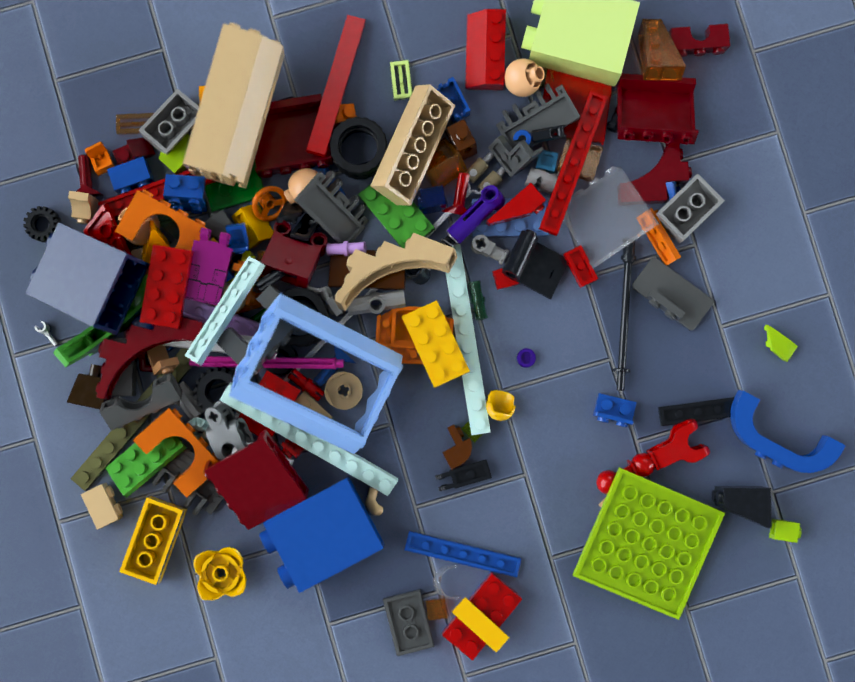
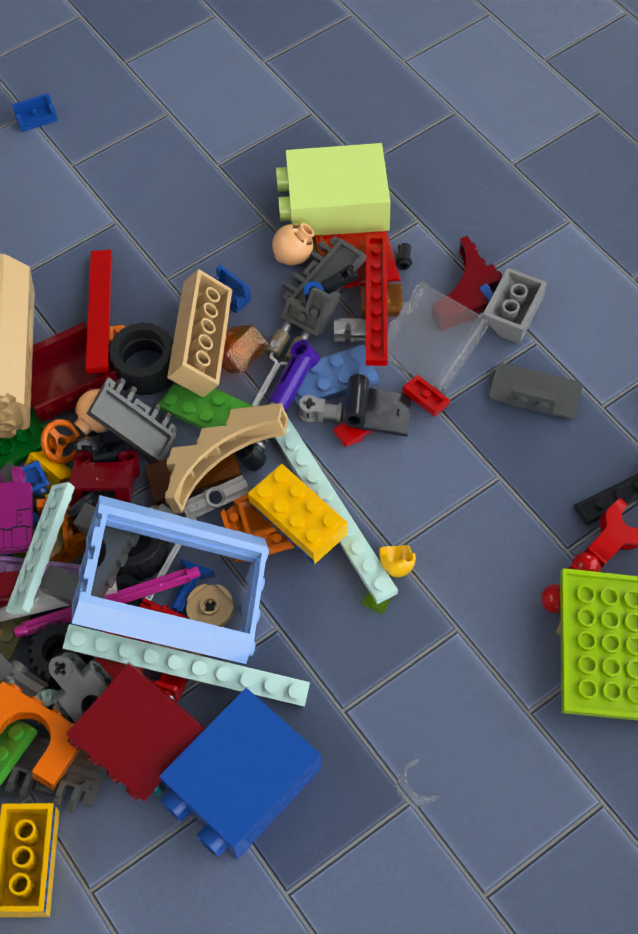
camera: 20 degrees left, 25 degrees down
(210, 584) = (106, 862): yellow brick -> none
(345, 248) = (158, 457): lavender pin -> none
(372, 504) = (285, 715): tan arm -> none
(399, 63) = (173, 303): yellowish green tile -> none
(408, 622) = (387, 852): dark grey tile -> none
(431, 200) = (240, 378): clear blue brick -> none
(436, 609) = (415, 822): clear orange tile -> none
(460, 195) = (268, 368): red piece -> none
(461, 451) = (370, 622): reddish brown brick -> none
(462, 139) = (249, 312): reddish brown torso -> none
(463, 554) = (421, 744): blue tile -> none
(466, 475) = (387, 650): black hinge -> none
(478, 300) = (328, 464): clear green pin -> none
(480, 624) = (476, 807): yellow tile -> none
(485, 50) = (246, 237): red slope -> none
(495, 601) = (473, 806): red brick -> none
(520, 206) = (336, 356): red slope -> none
(526, 358) = (405, 505): dark purple tile -> none
(547, 161) = (348, 310): dark azure plate -> none
(614, 409) = (527, 524): blue bracket -> none
(628, 258) = (516, 480): black bar -> none
(656, 110) = (438, 228): dark red panel -> none
(658, 52) = (420, 183): clear orange wedge -> none
(662, 242) = (502, 347): orange hinge -> none
(716, 40) = (440, 174): dark red arch -> none

